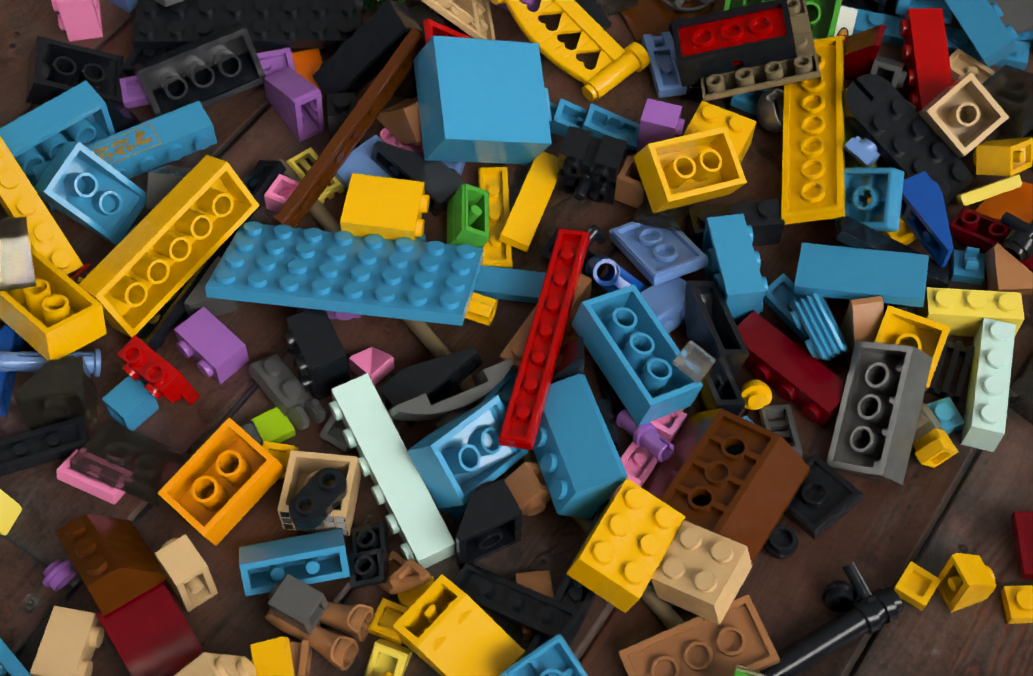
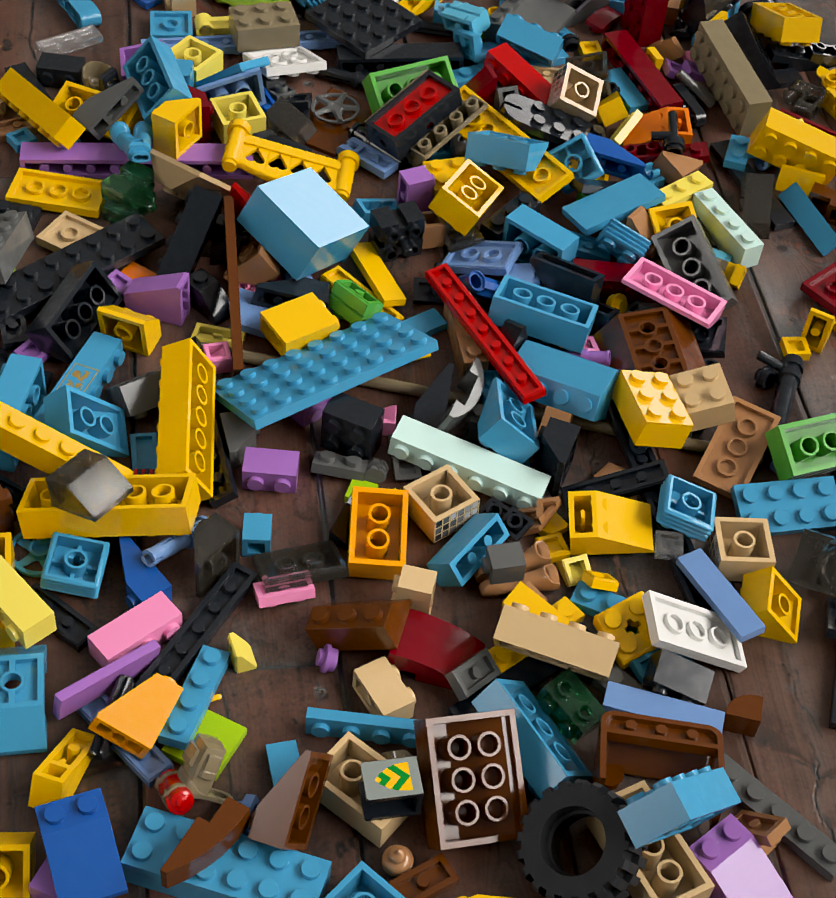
camera: 45 degrees left, 10 degrees down
(159, 375) = (263, 497): red plate -> none
(238, 114) = (136, 330): none -> yellow slope
(320, 497) = (454, 492): black plate -> none
(694, 361) = (582, 294): clear tile -> none
(797, 138) = (504, 151): none -> dark azure slope
(811, 427) = (675, 292): none -> bright pink slope
(862, 150) = (547, 136): medium blue slope -> none

